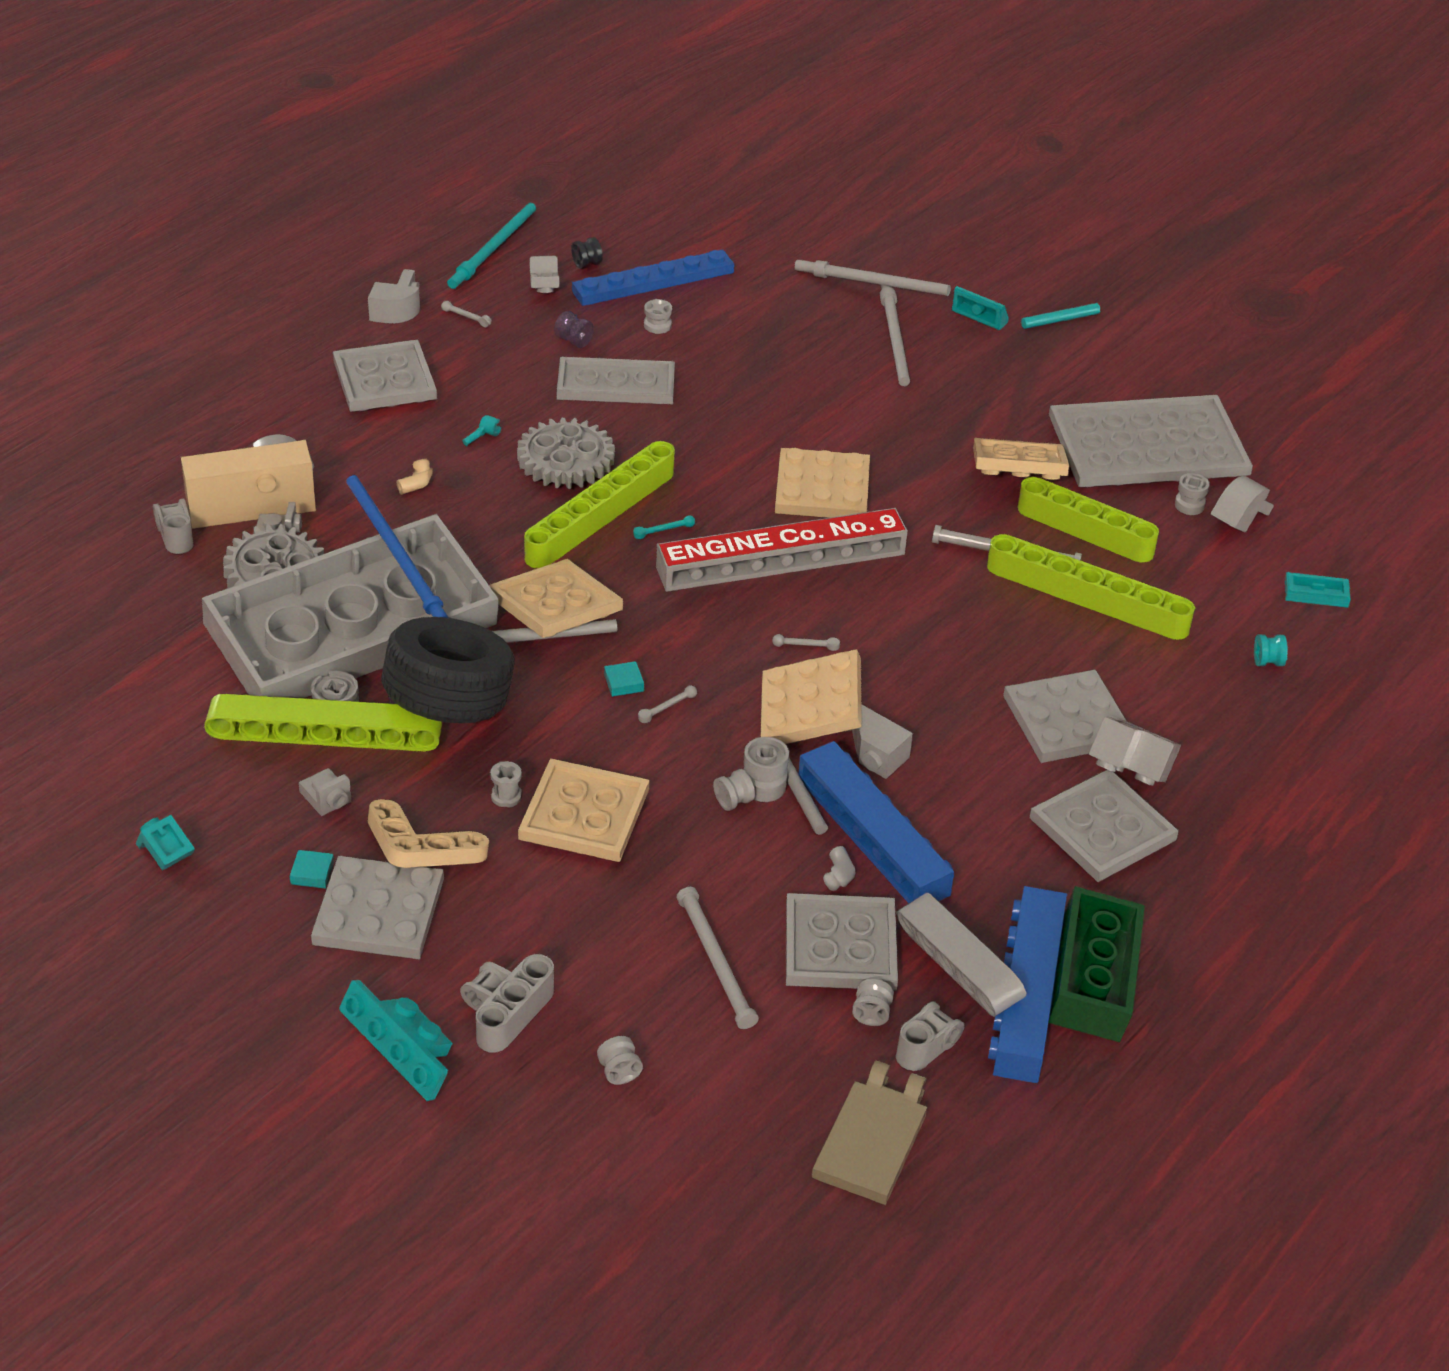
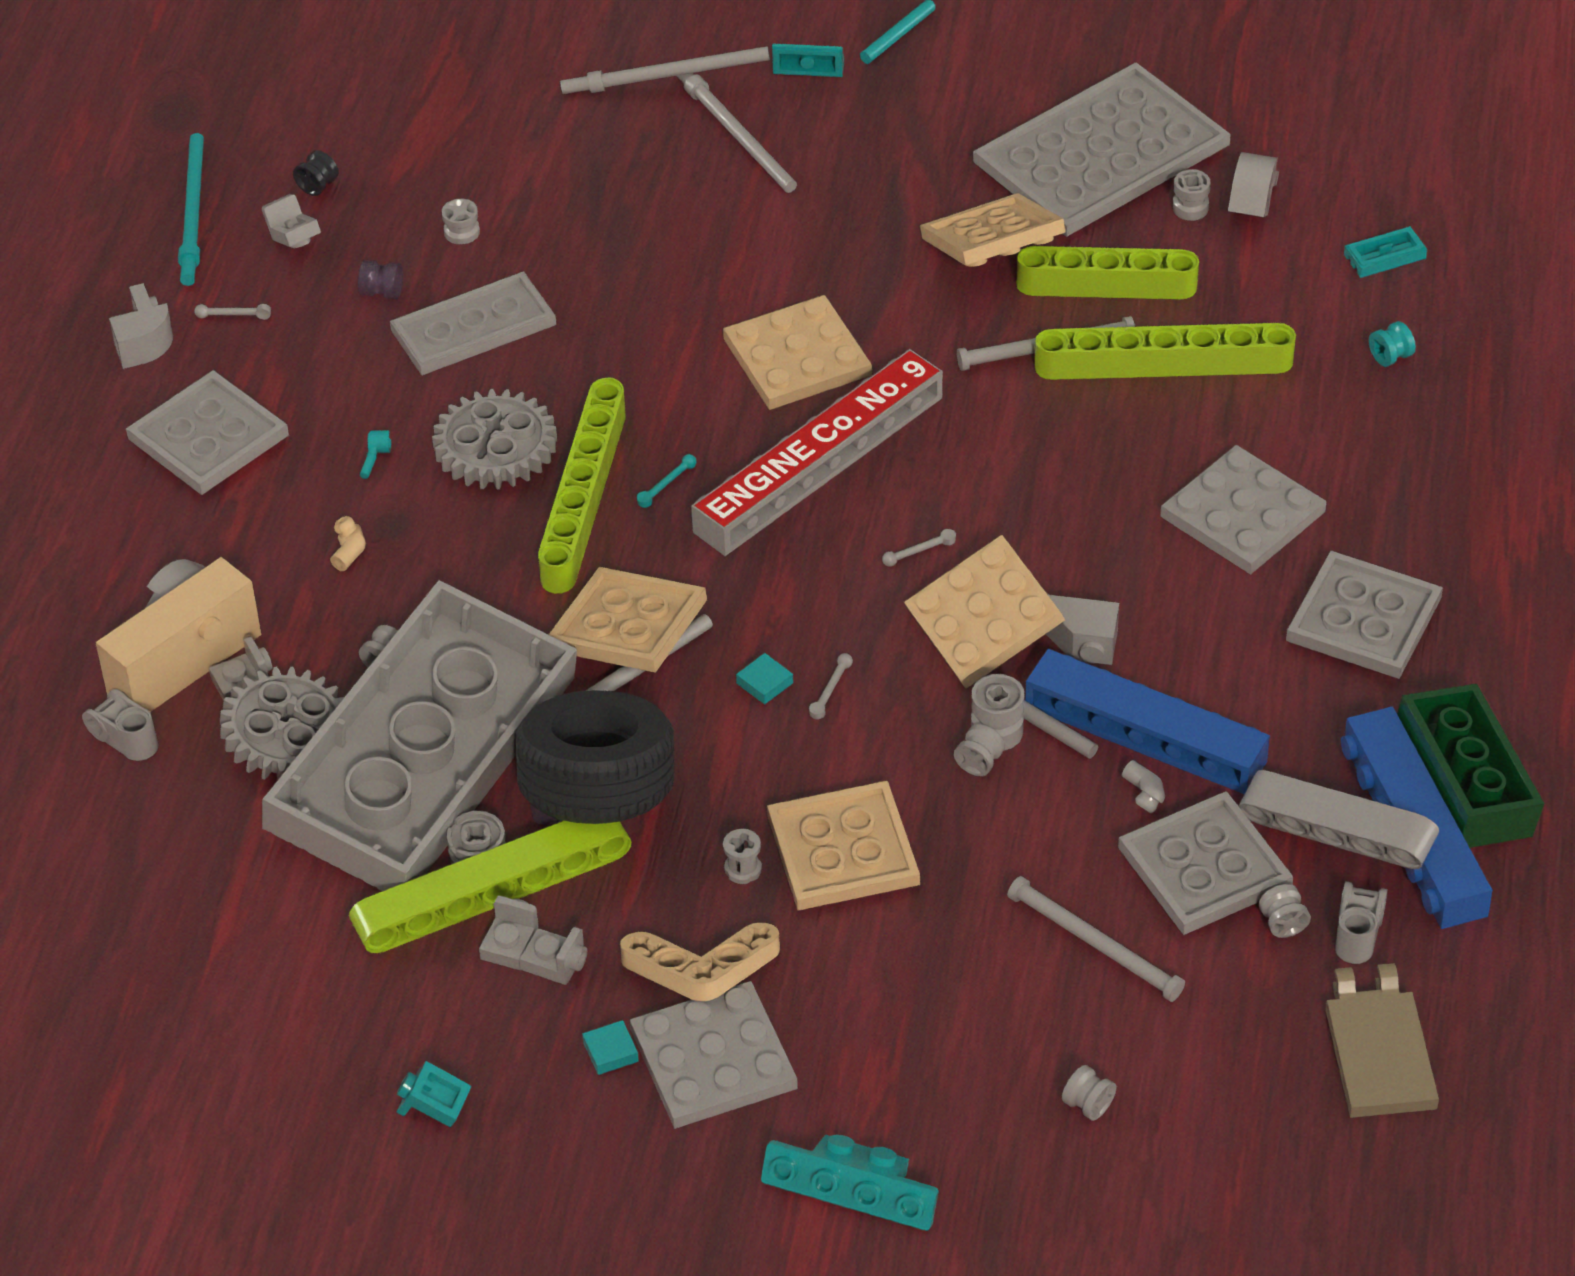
camera: 25 degrees left, 5 degrees up
(308, 761) = (510, 932): none -> light grey bracket
(431, 603) = (517, 688): blue bar -> none
(508, 999) = (919, 1085): light grey piece -> none
(652, 277) = (411, 173): blue plate -> none
(1132, 747) = (1347, 517): light grey brick -> none

